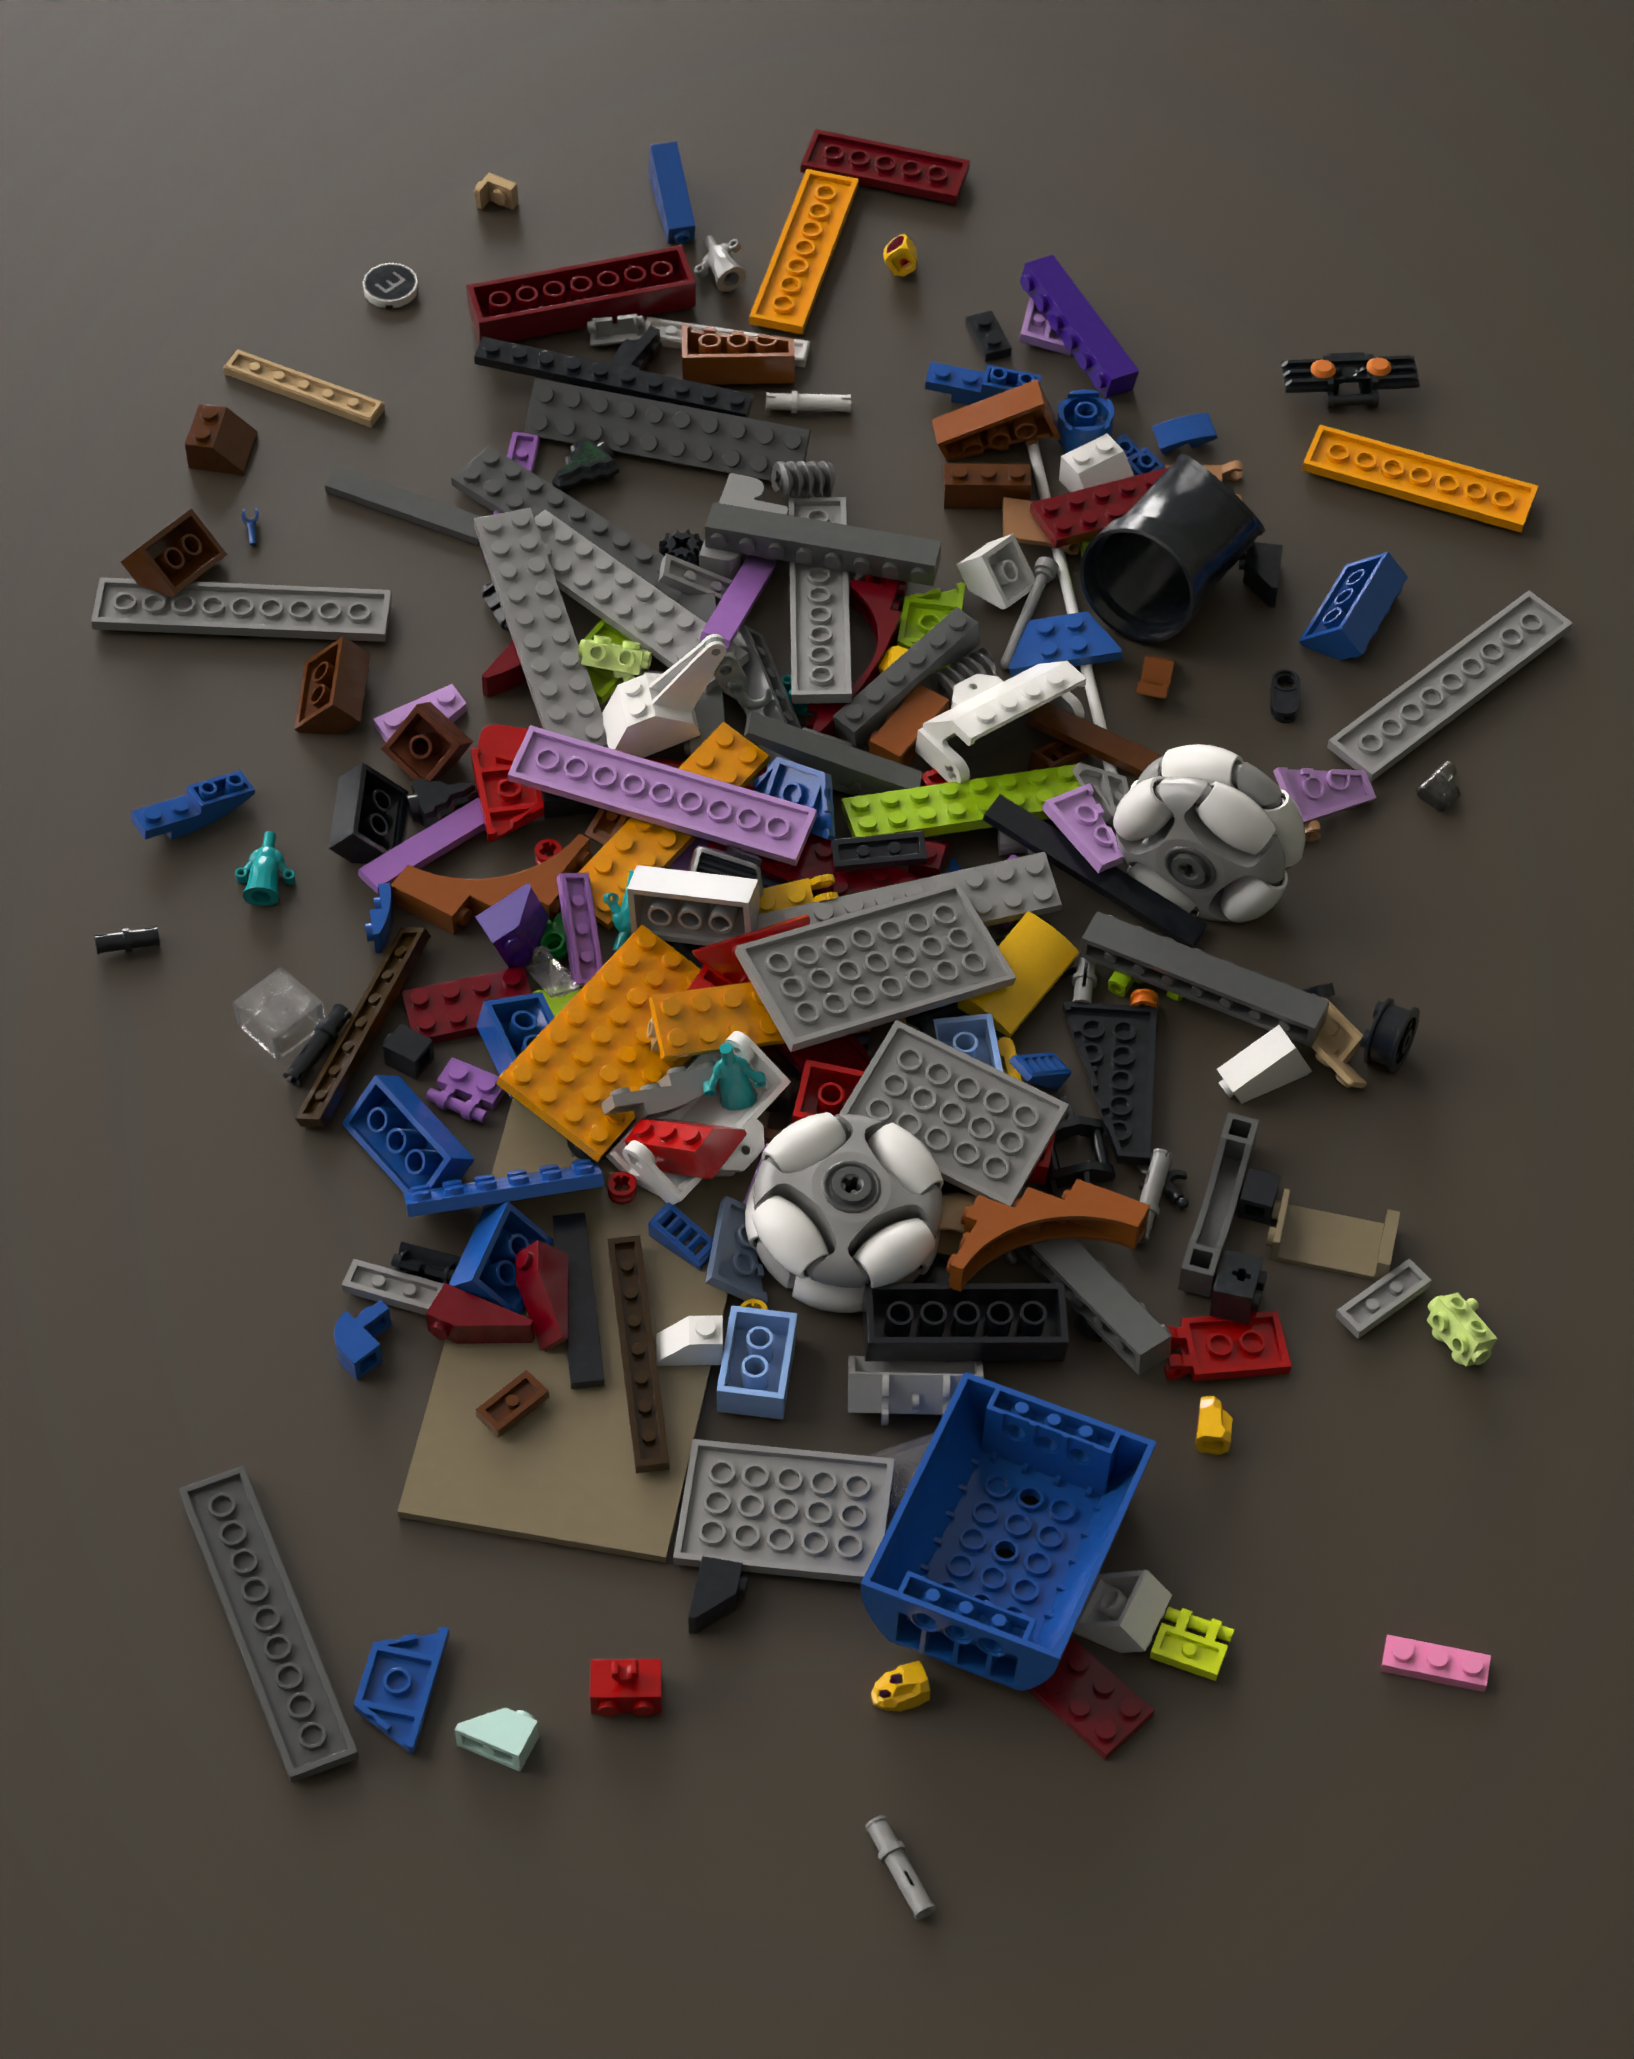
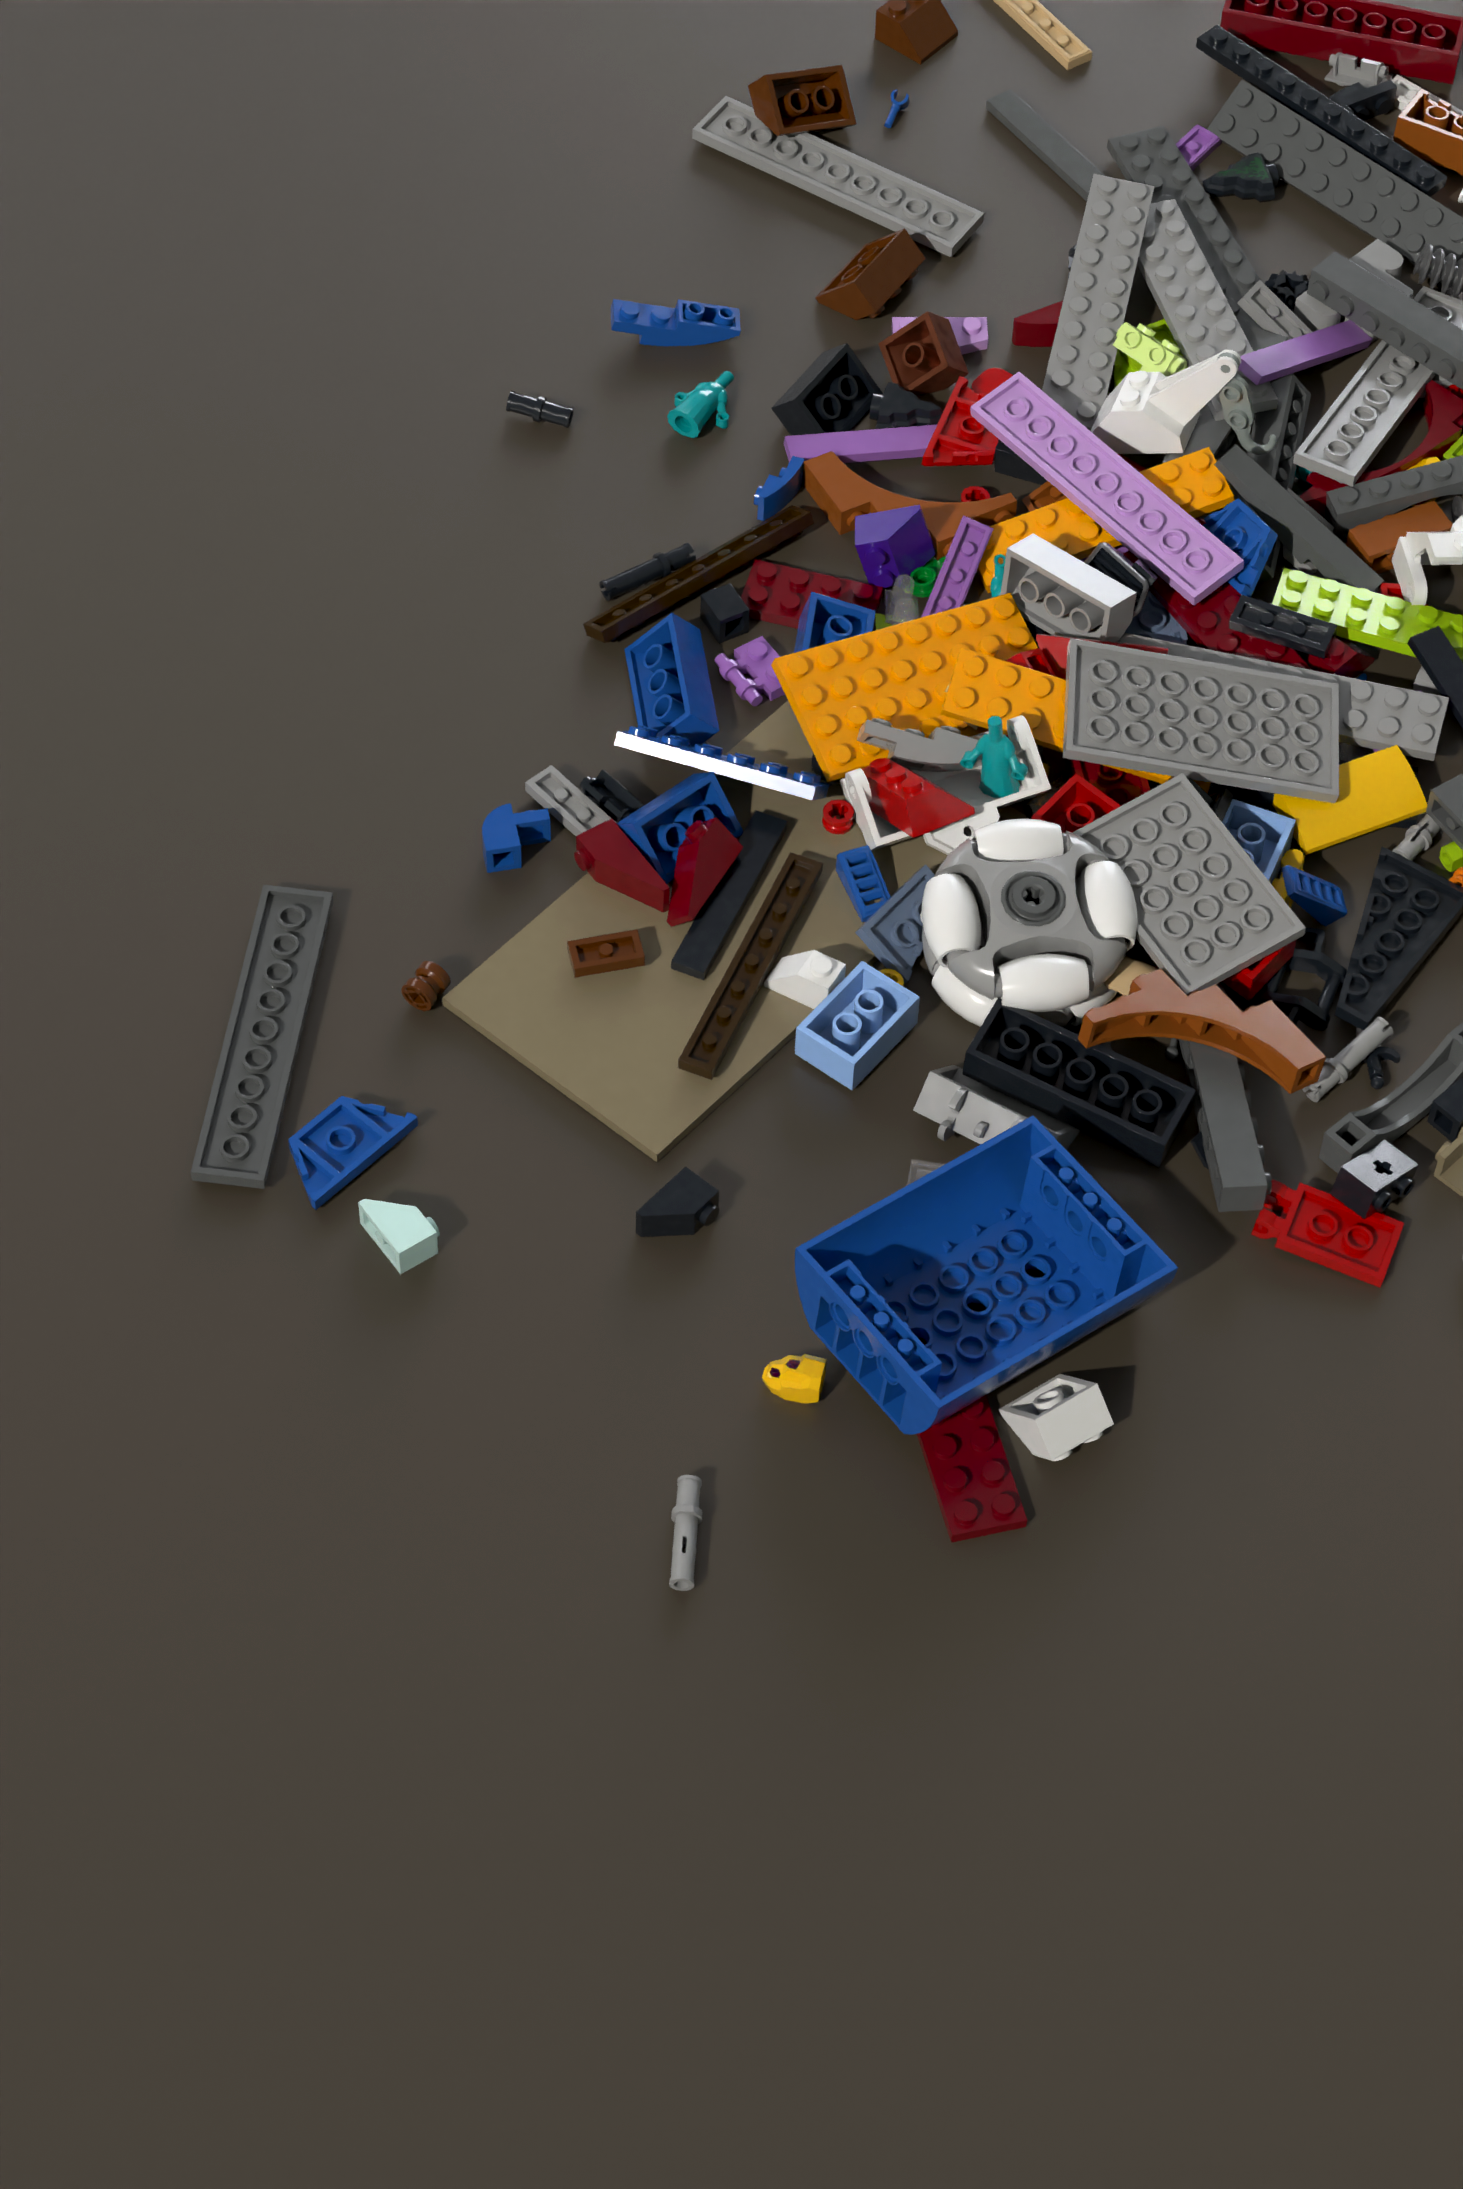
camera: 30 degrees right, 0 degrees up
(279, 1013) = (629, 527): clear brick -> none
(377, 1508) = (428, 982): none -> reddish brown wheel
(625, 1686) = (541, 1246): red brick -> none
(784, 1510) = (787, 1159): light grey plate -> none
(796, 893) = (1176, 630): yellow hinge -> none
(1190, 1651) = (1099, 1485): neon yellow plate -> none
(1213, 1427) = (1262, 1295): yellow rock -> none
(1436, 1663) = (1341, 1621): bright pink plate -> none

